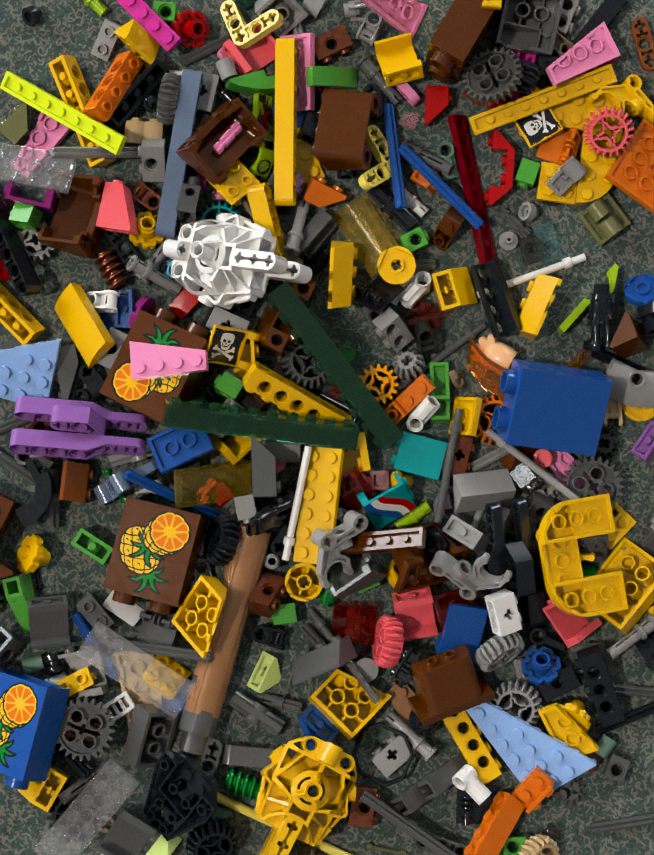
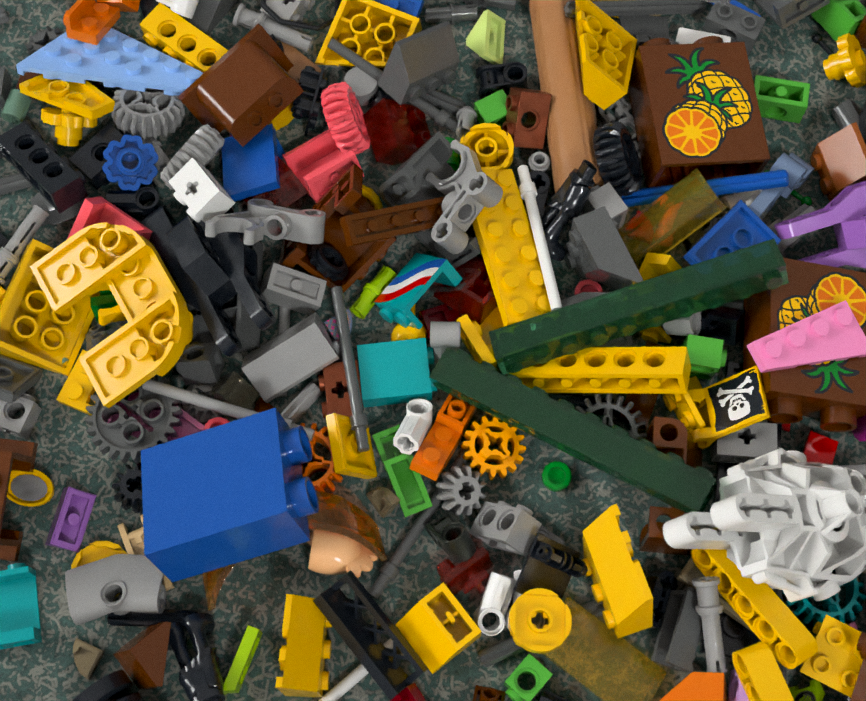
camera: 160 degrees right, 15 degrees down
(307, 612) = (466, 119): none -> light grey pin
(382, 460) = (443, 336): none -> light grey piece

